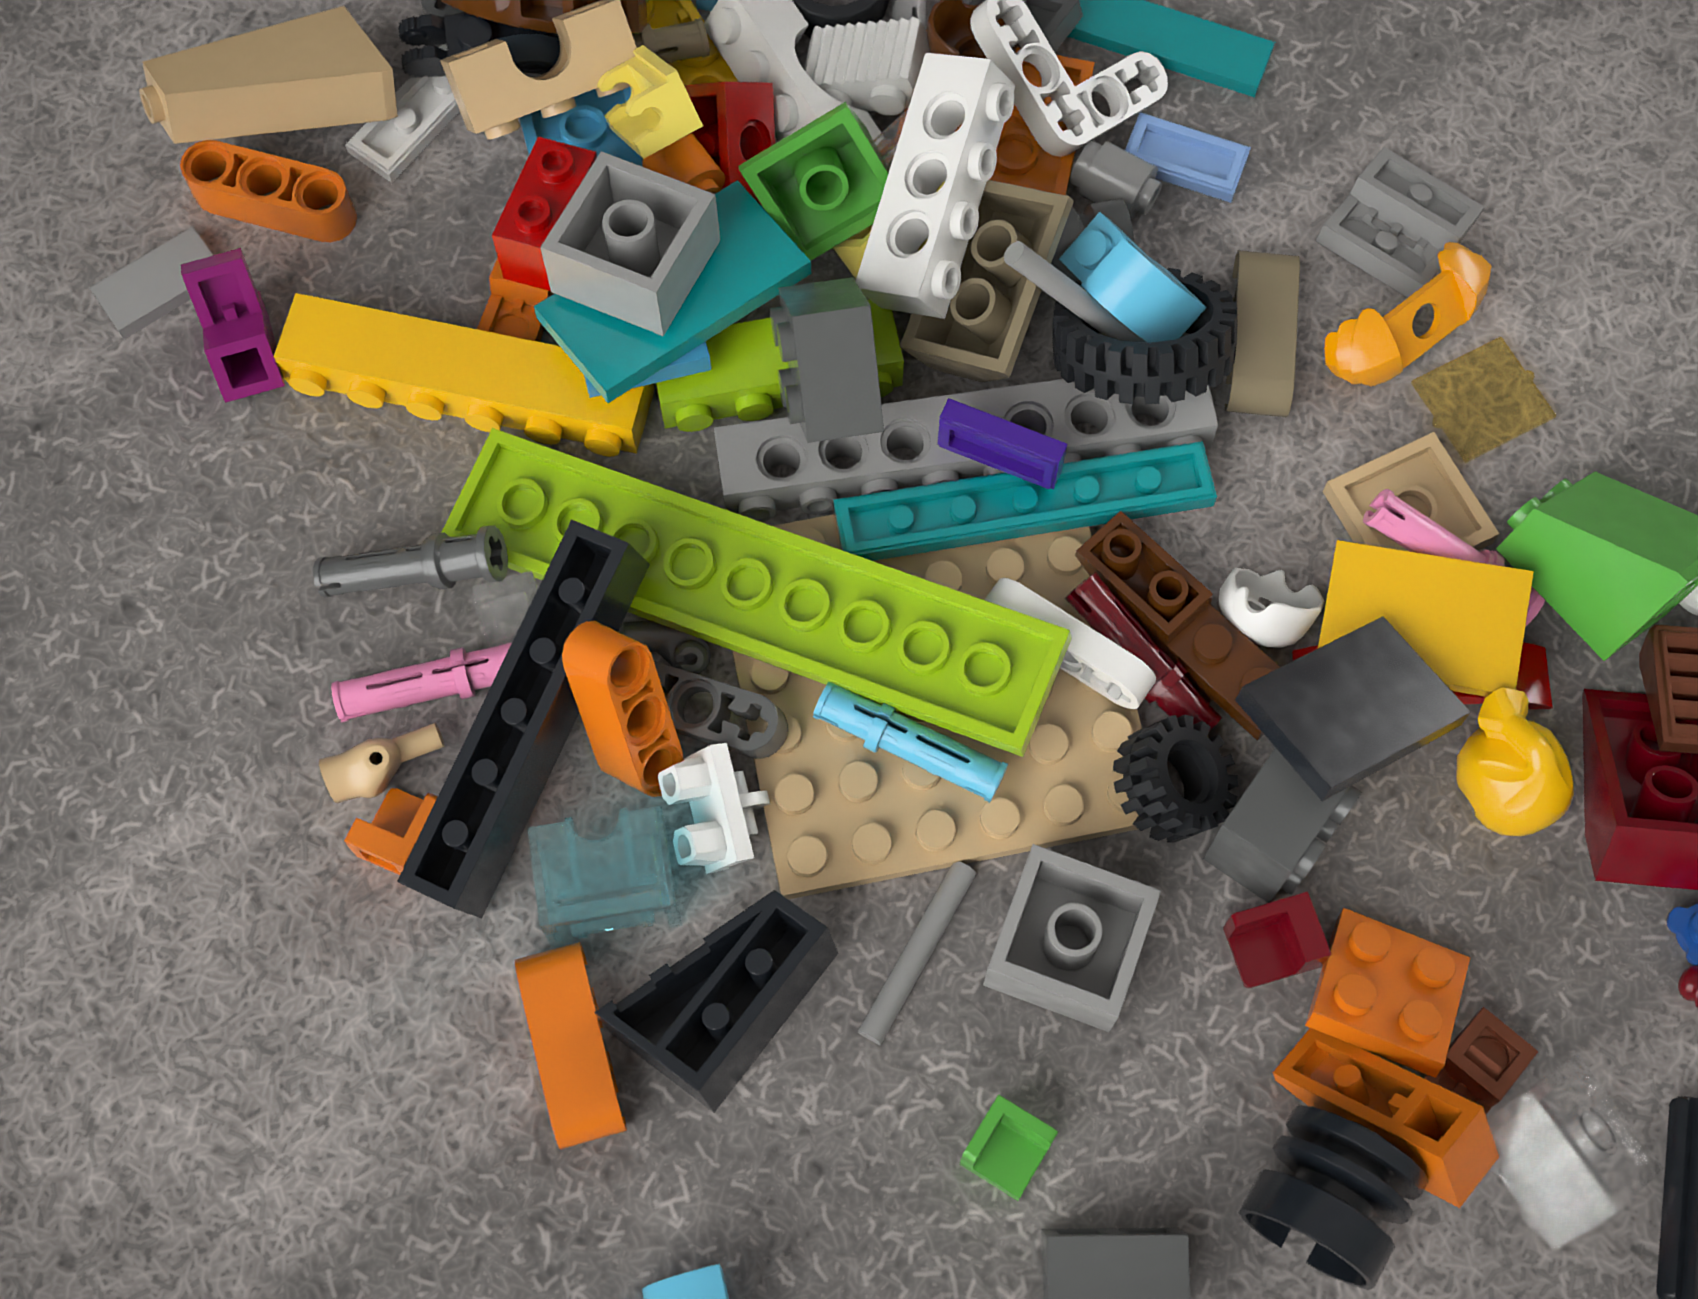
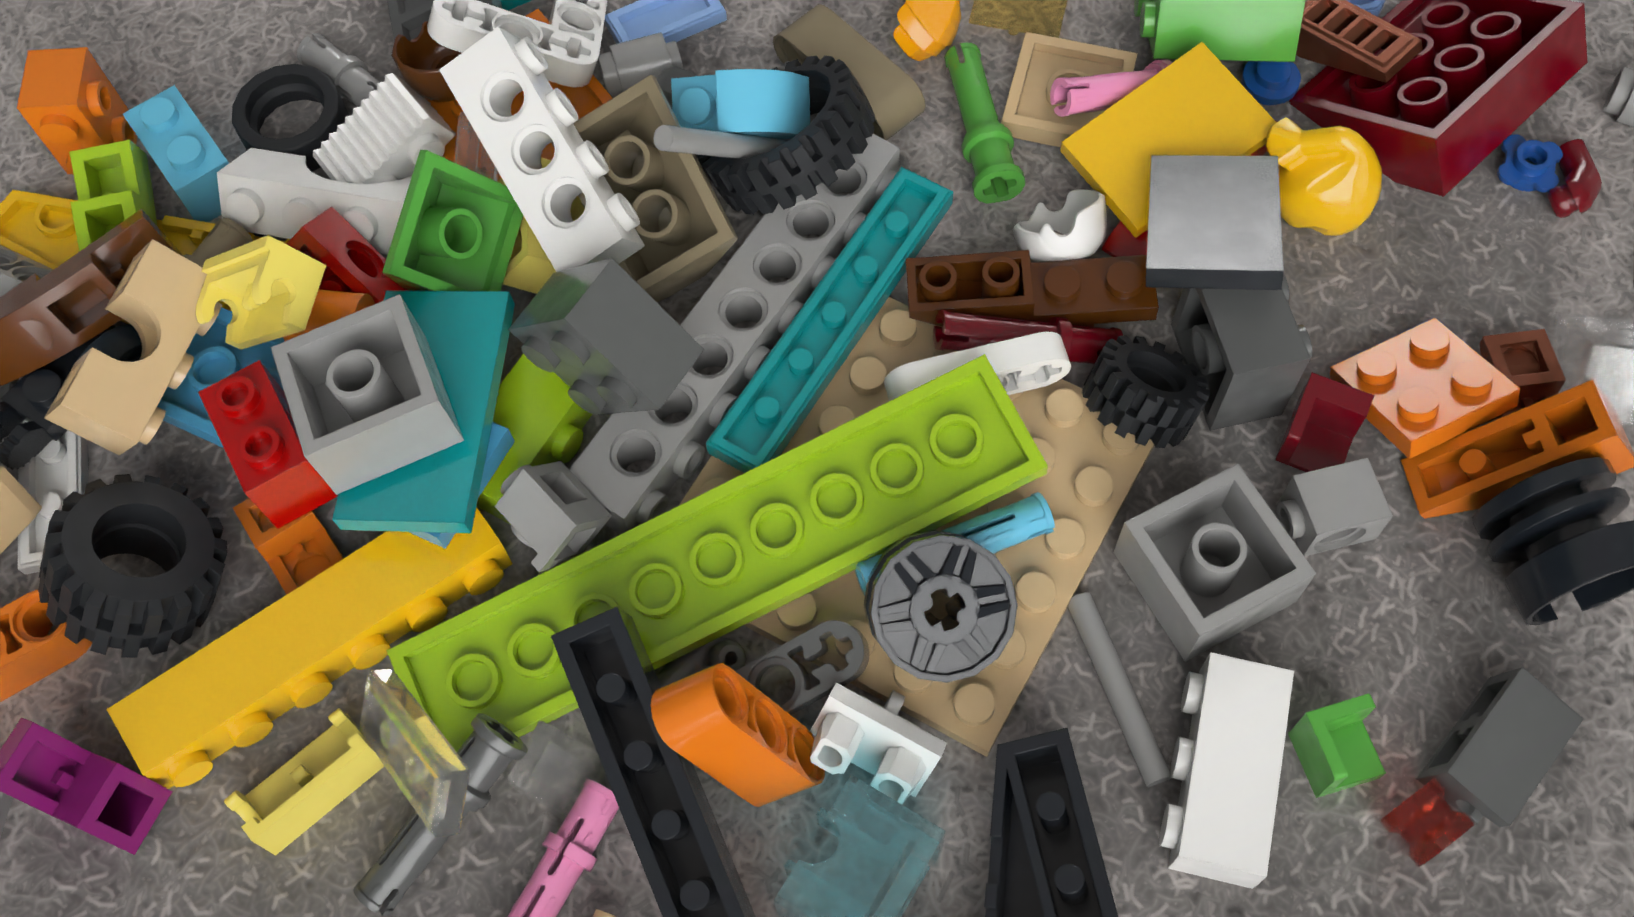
camera: 45 degrees left, 5 degrees down
(362, 465) = (307, 785): none -> light yellow hinge
(431, 508) = (414, 752): none -> clear tile
(432, 181) = (122, 608): none -> black tyre
(680, 442) = (551, 512): none -> light grey brick
(809, 780) = (977, 618): none -> wheel
(916, 1076) = (1228, 770): none -> white brick
(1001, 444) = (783, 287): dark purple tile -> none
(1003, 1255) = (1427, 822): none -> clear red wheel
(1208, 998) = (1334, 507): none -> light grey brick
(1300, 486) = (986, 141): none -> bright green pin
(1581, 665) = (1271, 81): none -> blue plate

